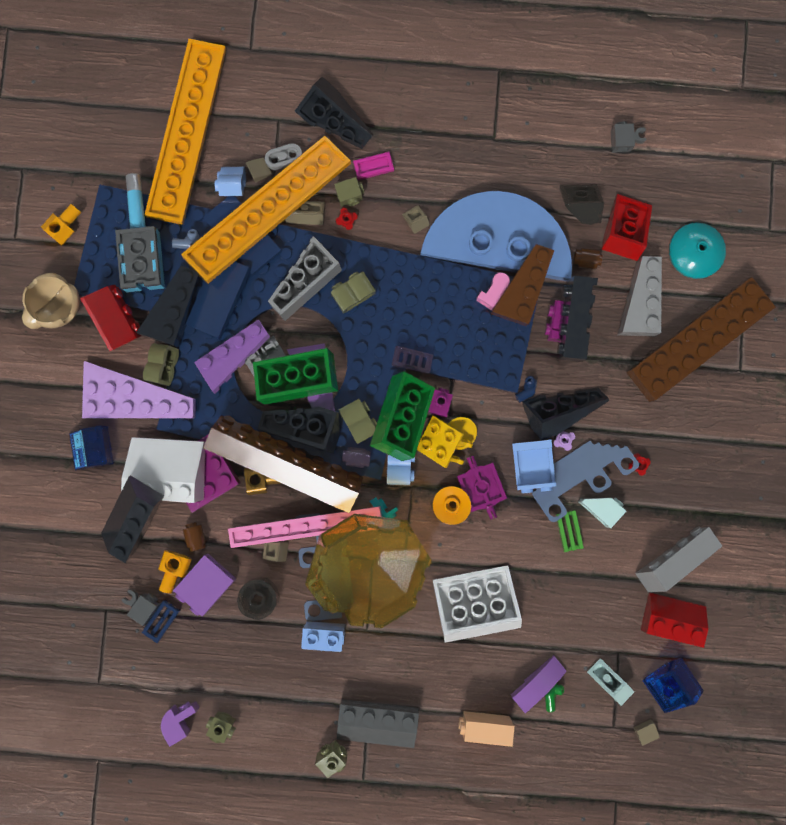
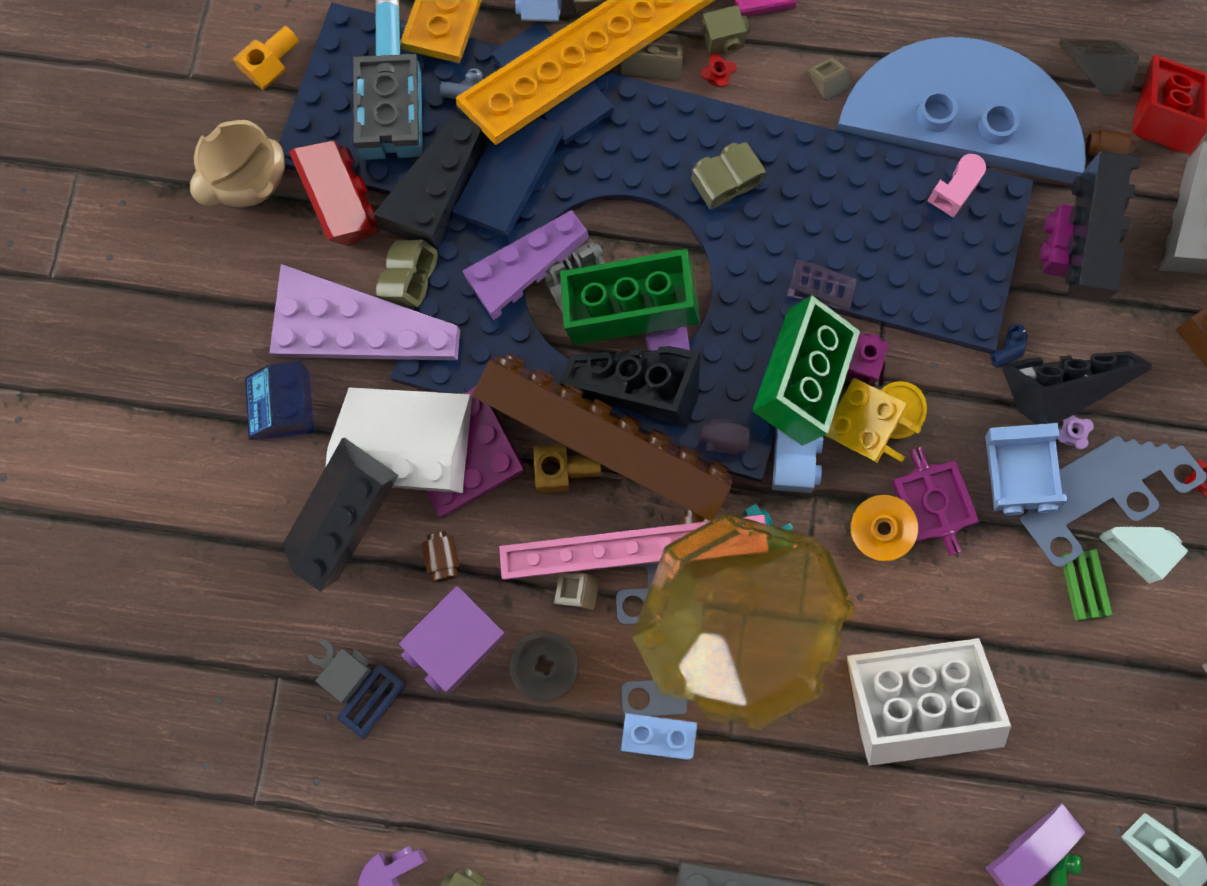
camera: 10 degrees right, 10 degrees down
(171, 574) = (397, 619): light orange piece -> none
(305, 279) = (653, 149): light grey wedge -> none
(358, 421) = (730, 376): olive brick -> none
(523, 291) = (1008, 187): reddish brown wedge -> none

